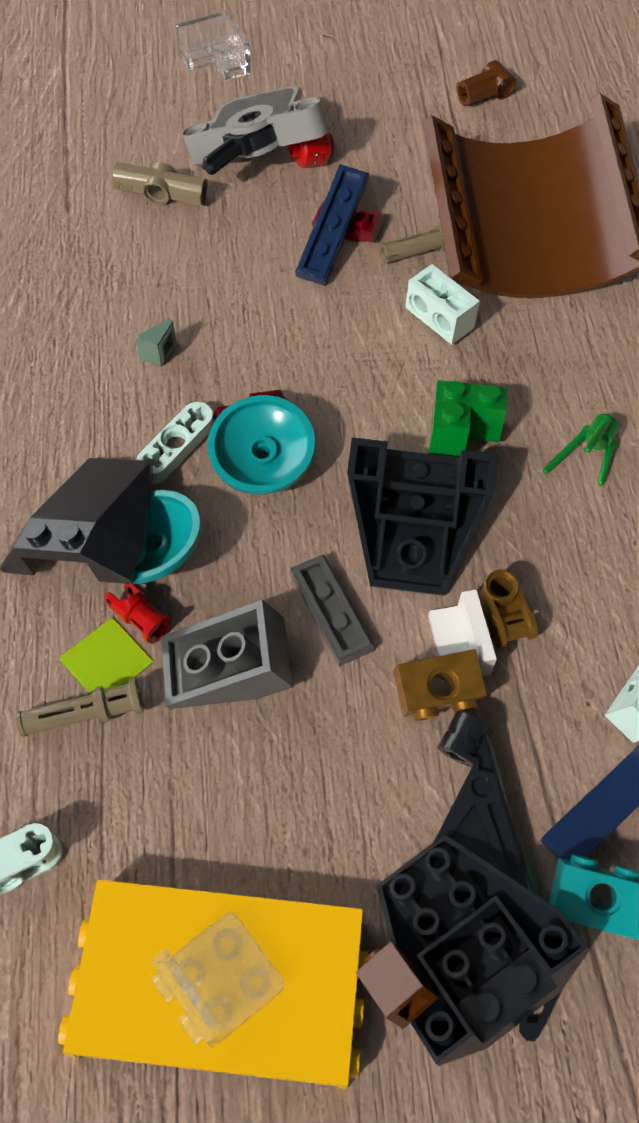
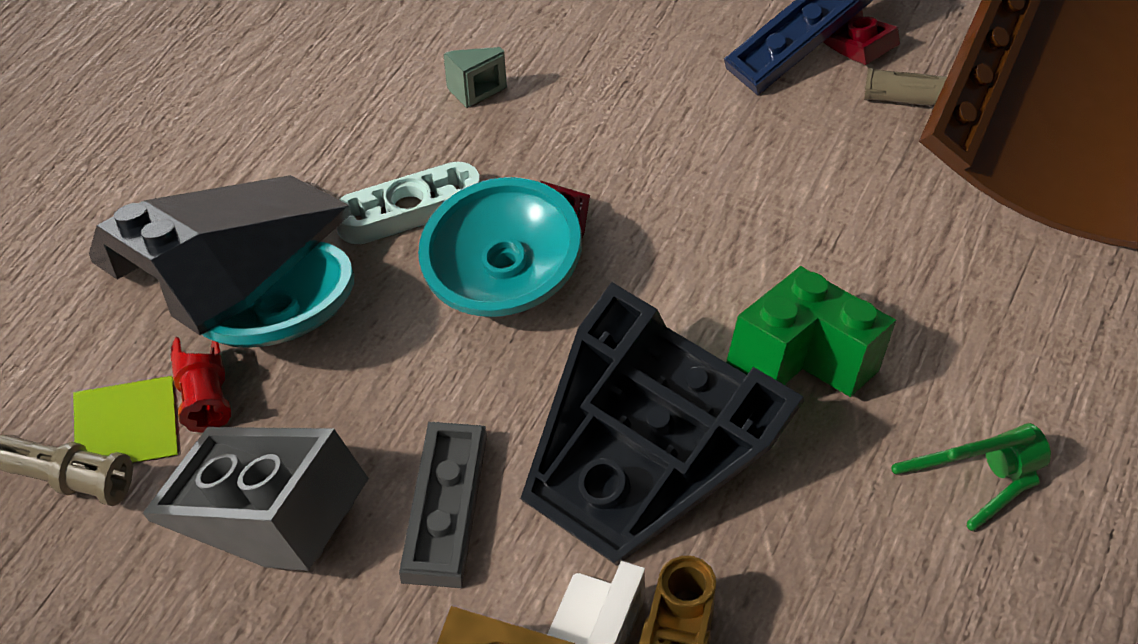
camera: 35 degrees right, 10 degrees down
(442, 304) = (892, 175): light aqua brick -> none

